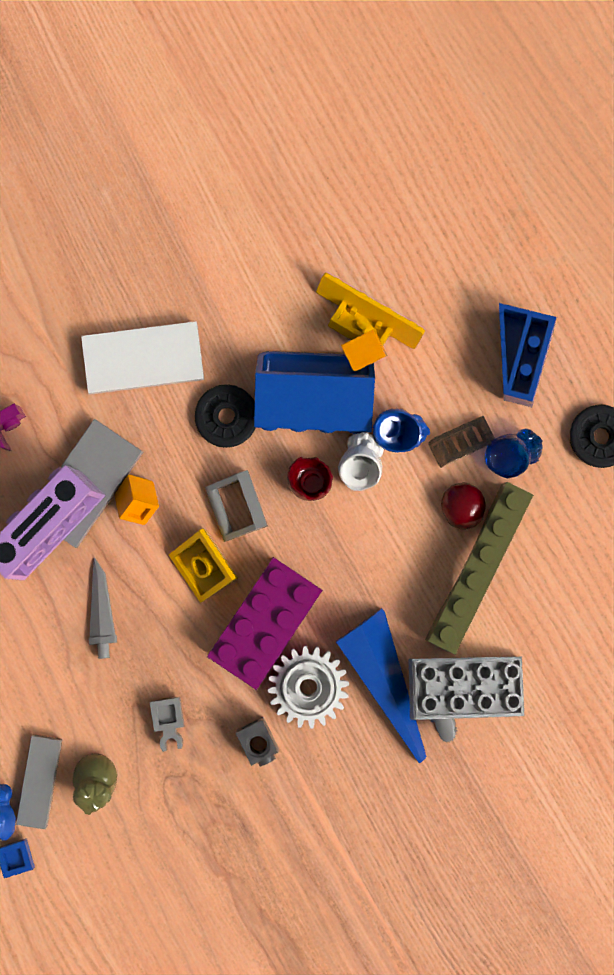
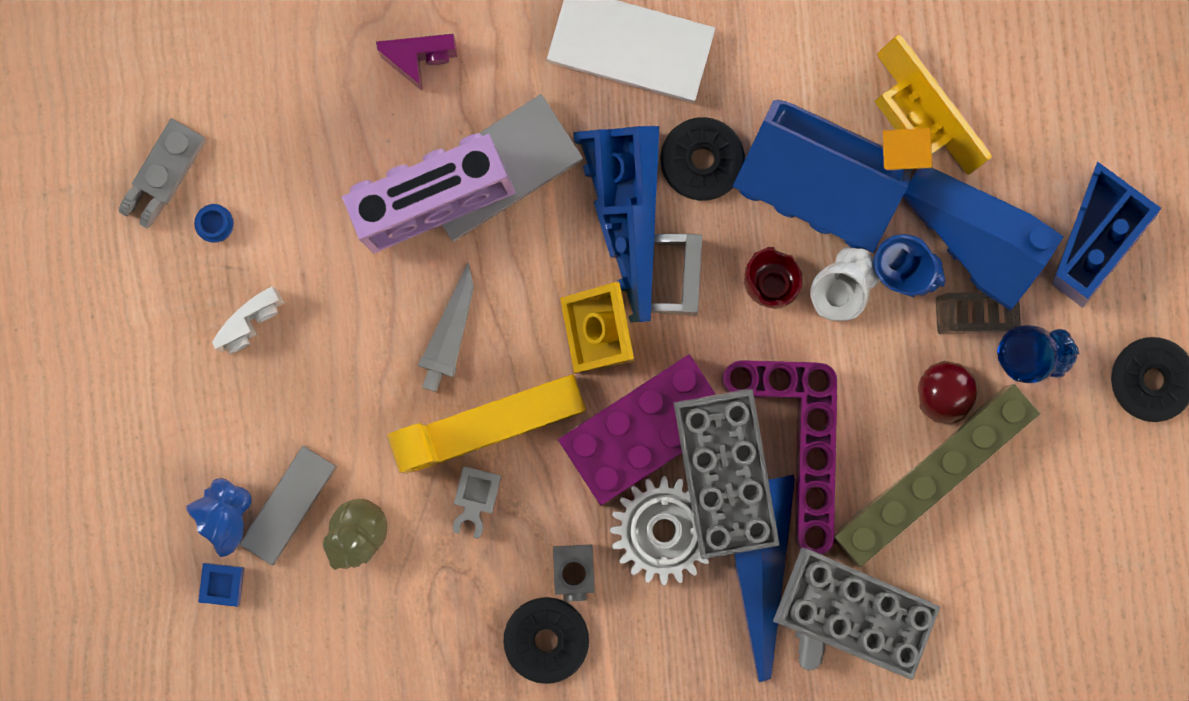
camera: 25 degrees right, 0 degrees up
(136, 499) = (550, 214): light orange panel -> none
(151, 668) = (430, 444): none -> yellow beam
(177, 452) = (625, 181): none -> blue wedge
(259, 817) = (550, 665): none -> black wheel
(334, 630) = (726, 473): none -> light grey tile
(381, 580) = (806, 437): none -> magenta beam
(448, 386) = (989, 237): none -> blue wedge

